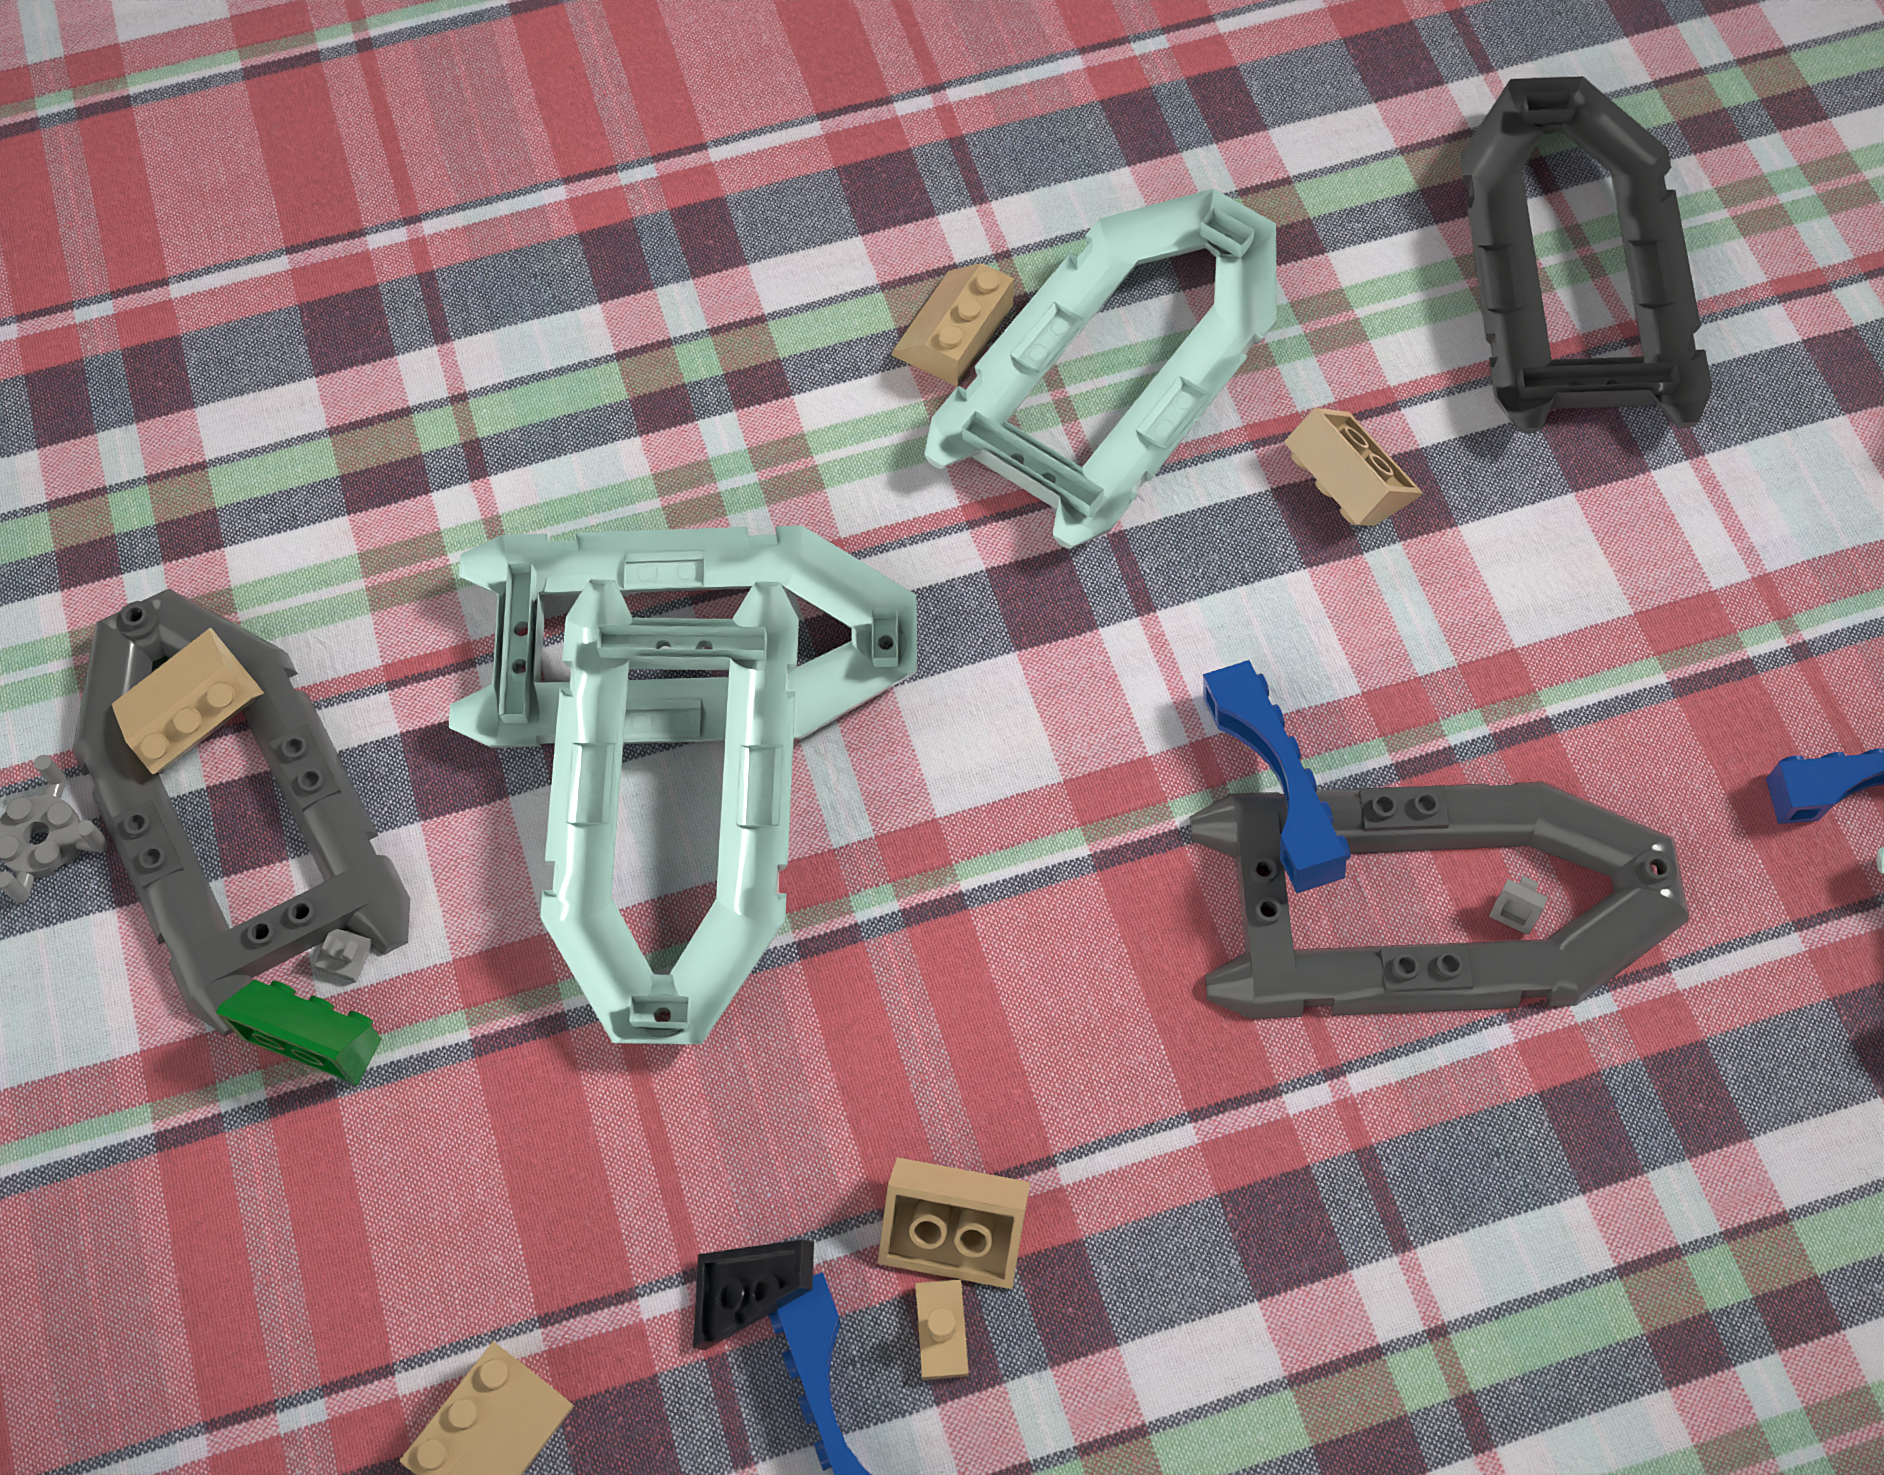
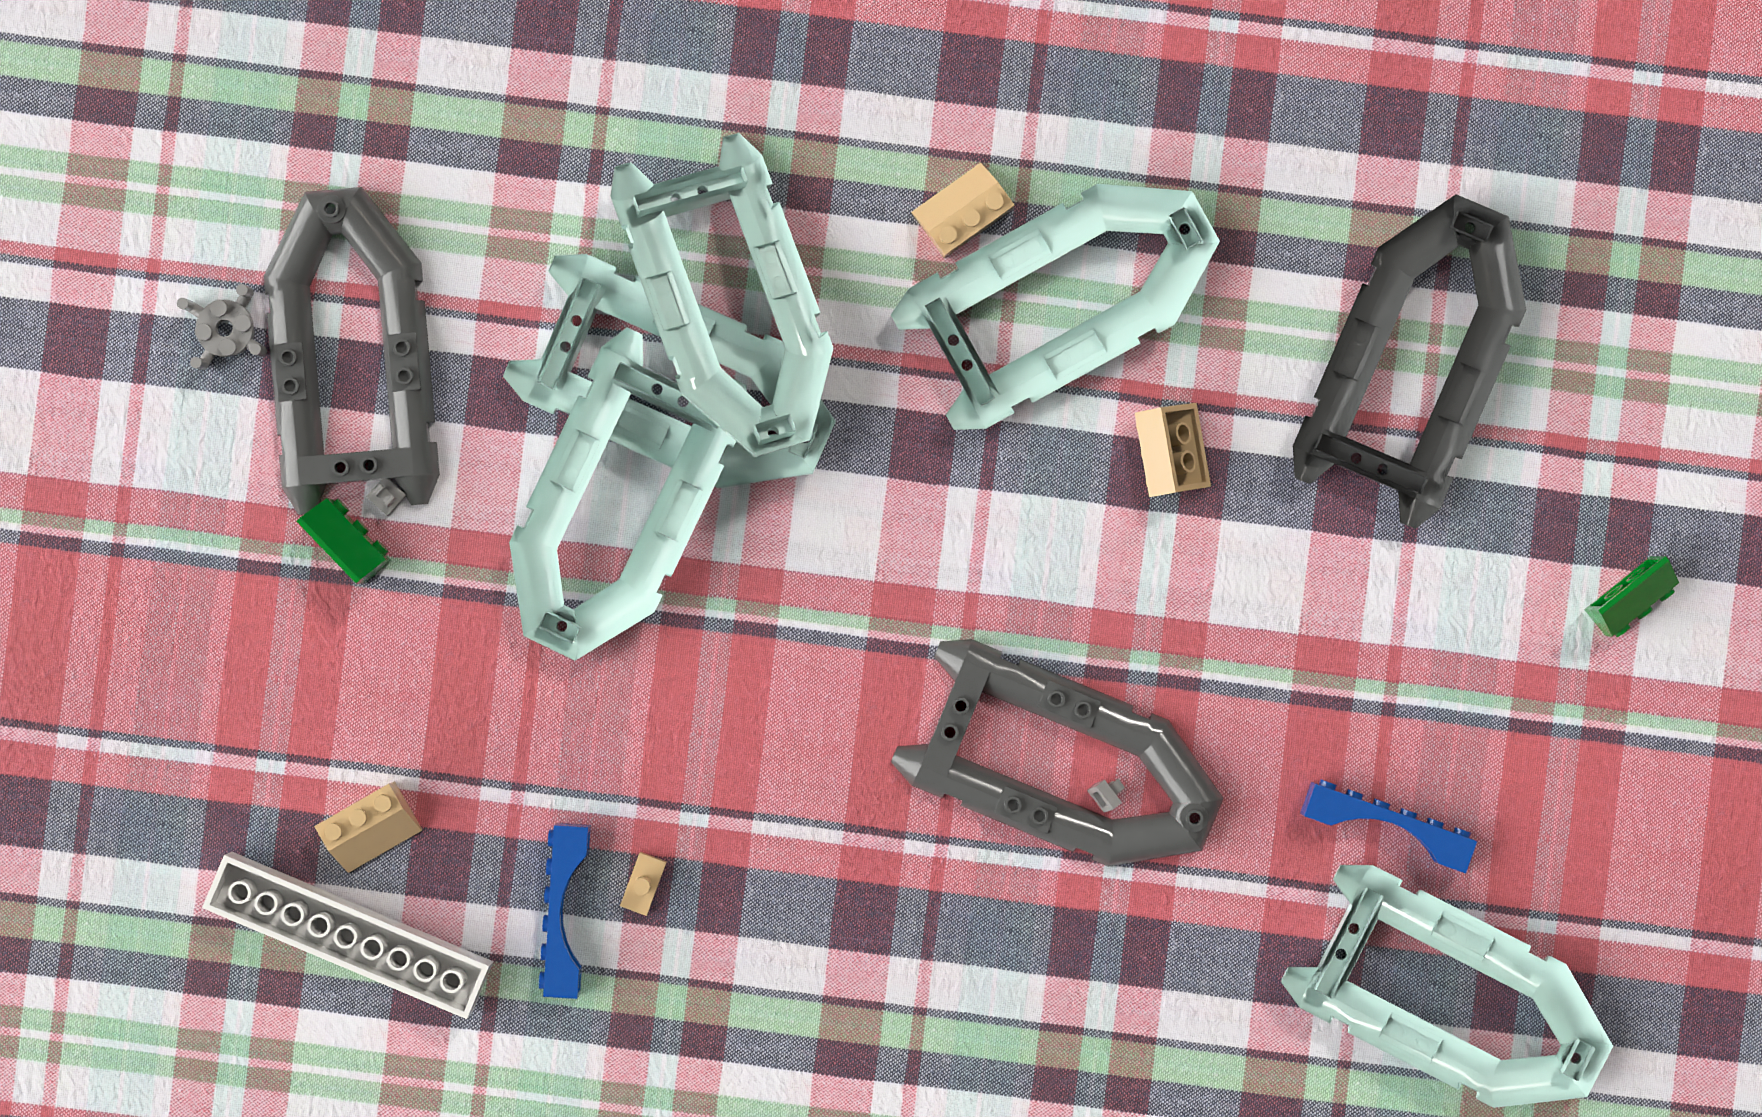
camera: 25 degrees right, 25 degrees up
(184, 702) = (343, 287): tan slope -> none
(664, 386) = (701, 380): none -> light aqua piece
(747, 1285) = (542, 815): black wing -> none
(953, 1222) = (676, 828): tan slope -> none
(1242, 709) = (1005, 591): blue arch -> none

